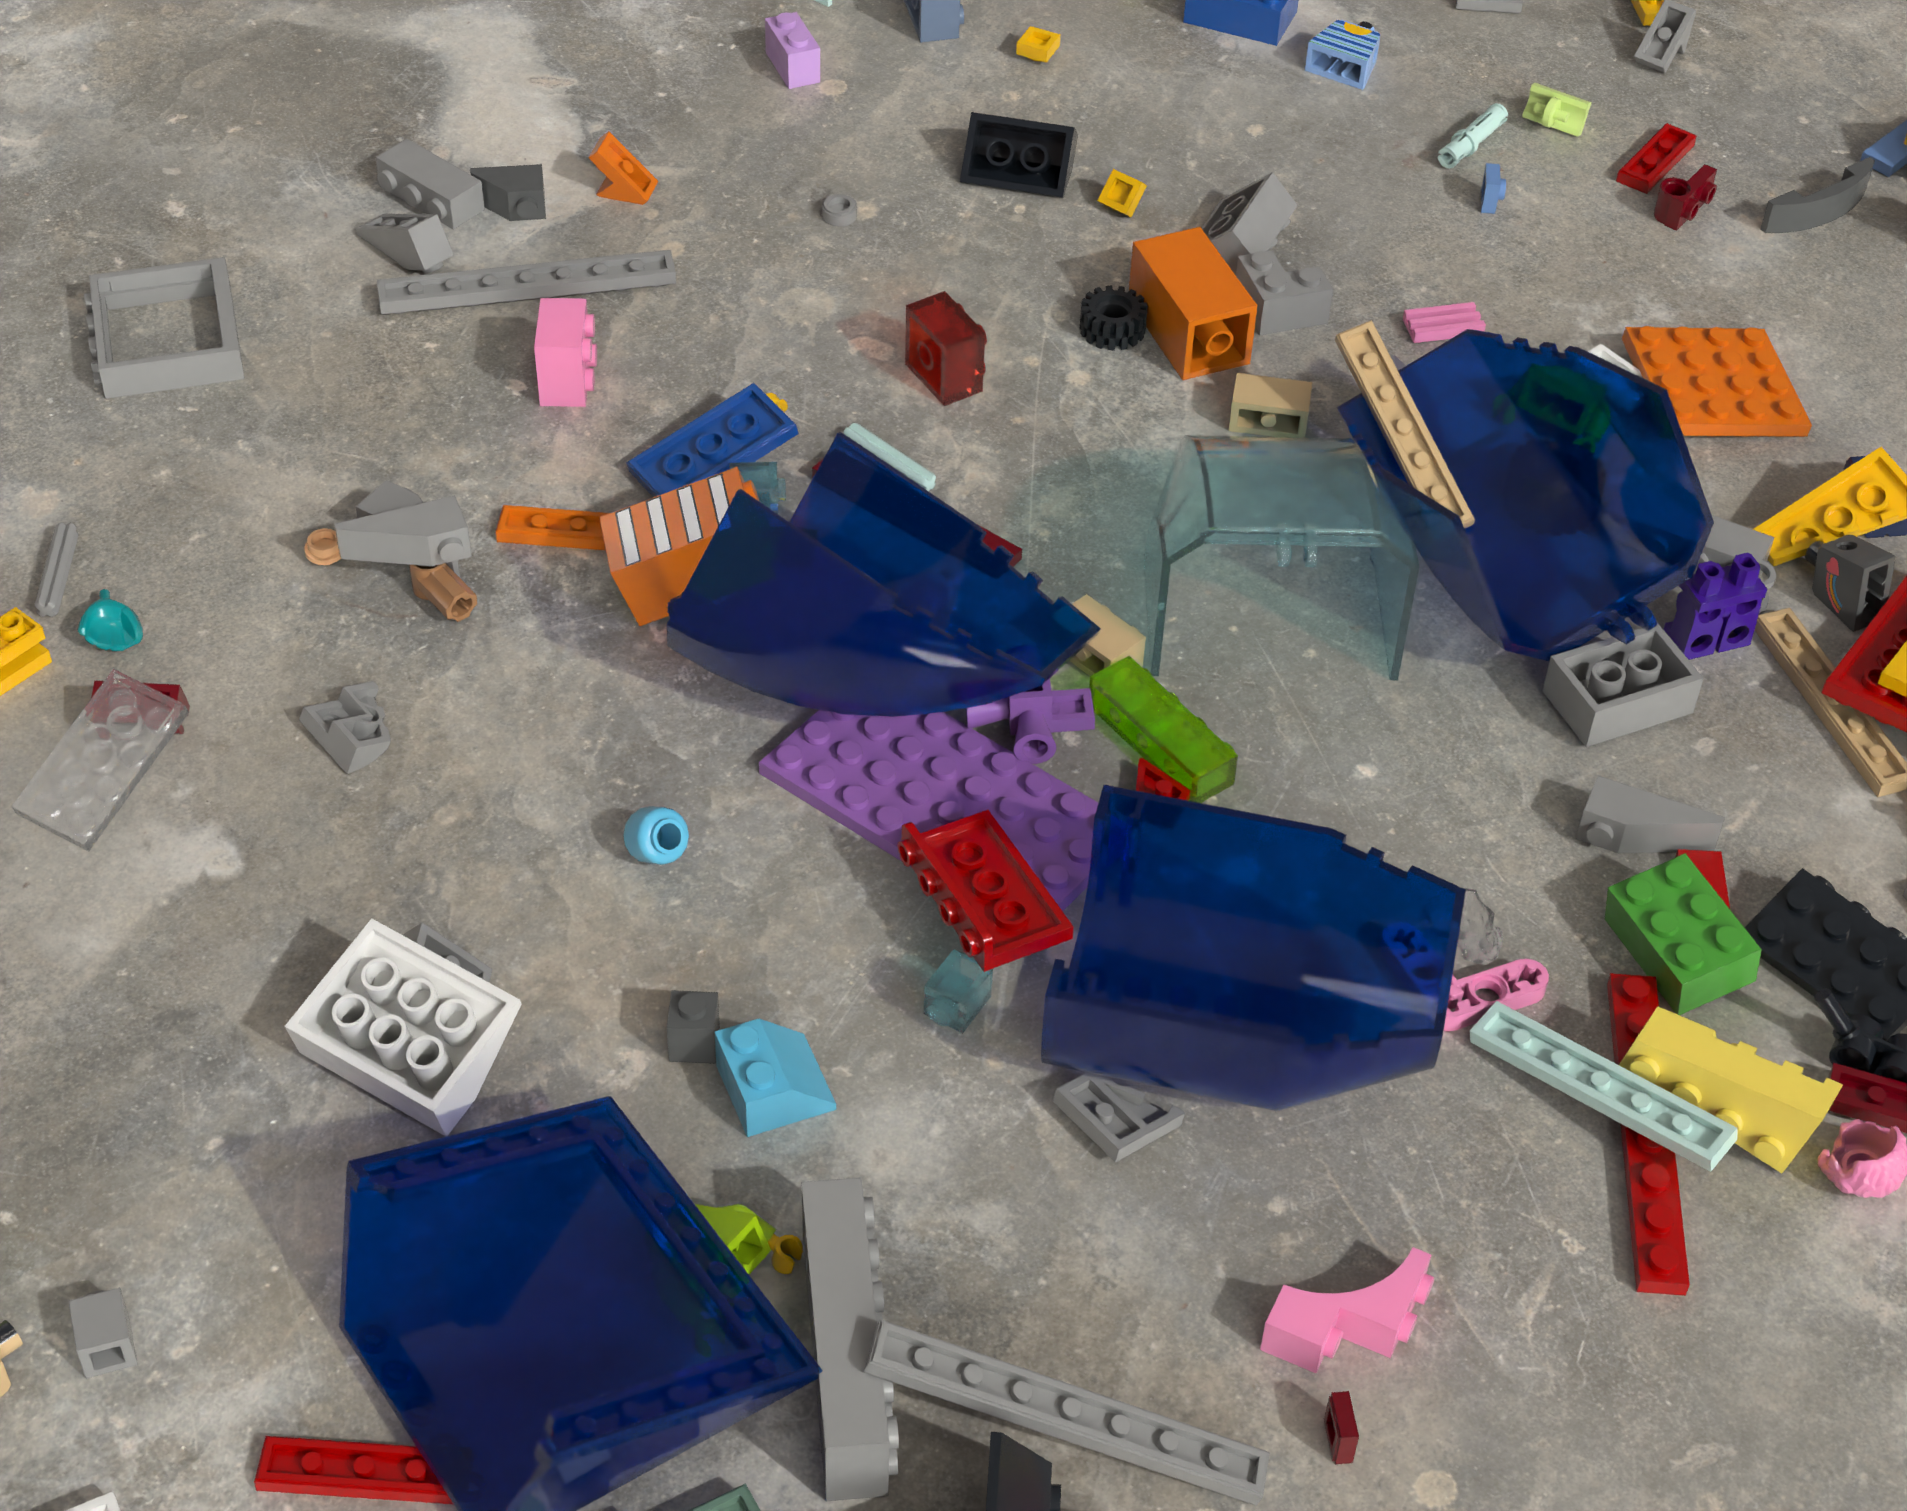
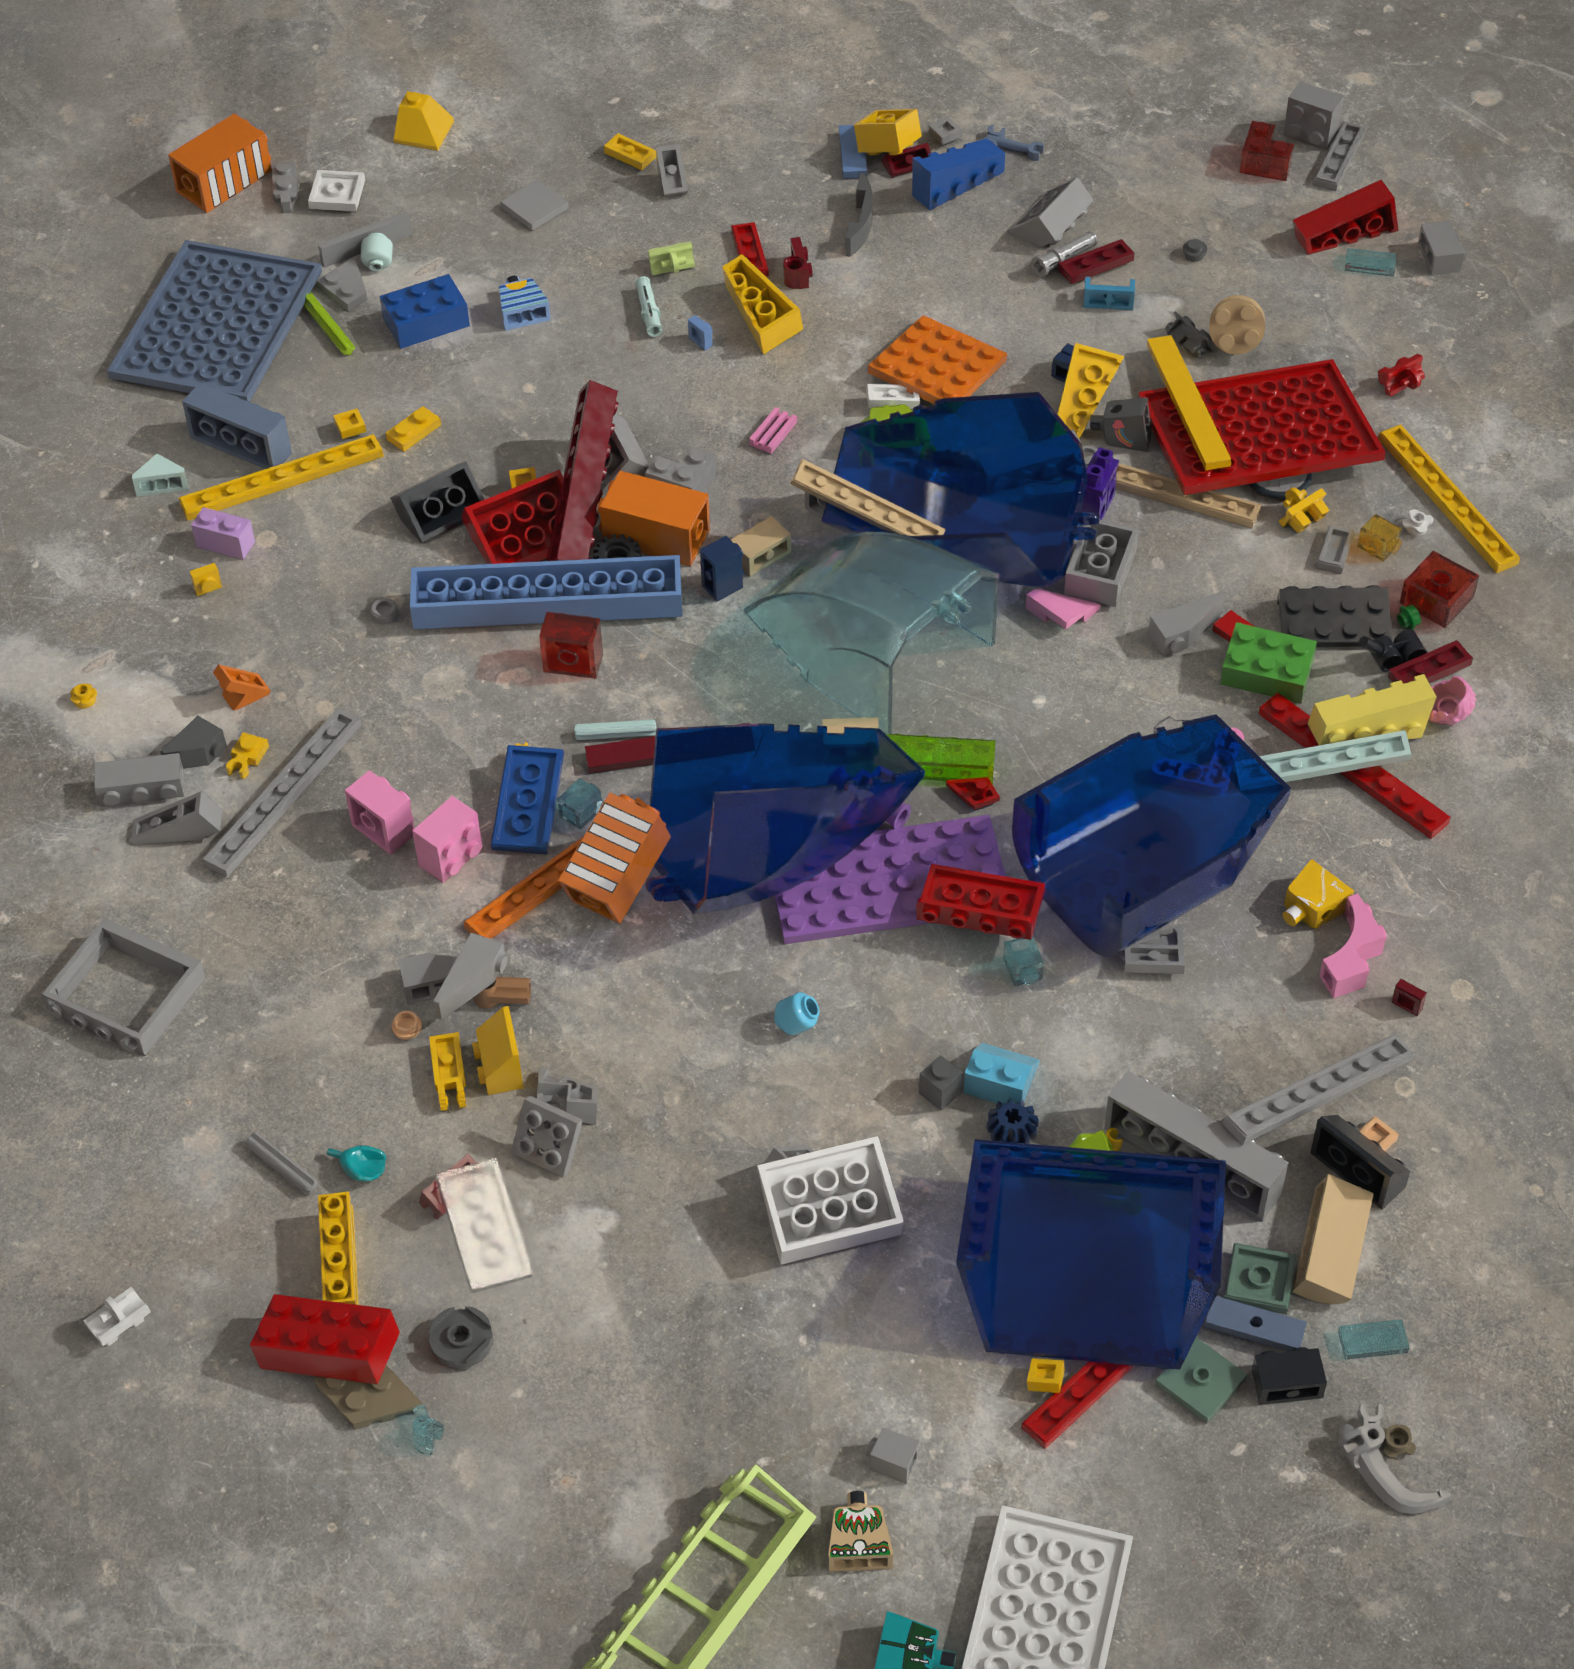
camera: 45 degrees left, 5 degrees up
(272, 734) = (554, 1132): none -> light grey plate
(295, 613) = (448, 1067): none -> yellow hinge
(349, 636) = (498, 1054): none -> yellow slope
(355, 1412) = (1045, 1375): none -> yellow plate
(495, 93) = (83, 695): none -> yellow plate
(550, 232) = (246, 752): none -> yellow plate
(583, 418) = (447, 839): none -> bright pink brick
(704, 1135) = (1012, 1122): none -> dark blue gear
(724, 75) = (205, 579): none -> yellow plate
(923, 48) = (282, 476): none -> yellow tile
(1002, 292) = (530, 589): none -> medium blue brick
(1068, 226) = (516, 522): none -> red slope
(1092, 88) = (413, 428): none -> yellow plate
(1165, 210) = (584, 473): none -> dark red brick
(1191, 390) = (721, 568): none -> dark blue brick
(1381, 1216) = (1315, 897): none -> yellow torso
(1517, 698) = (1059, 607): none -> bright pink slope
(1584, 208) = (762, 305): none -> yellow wedge

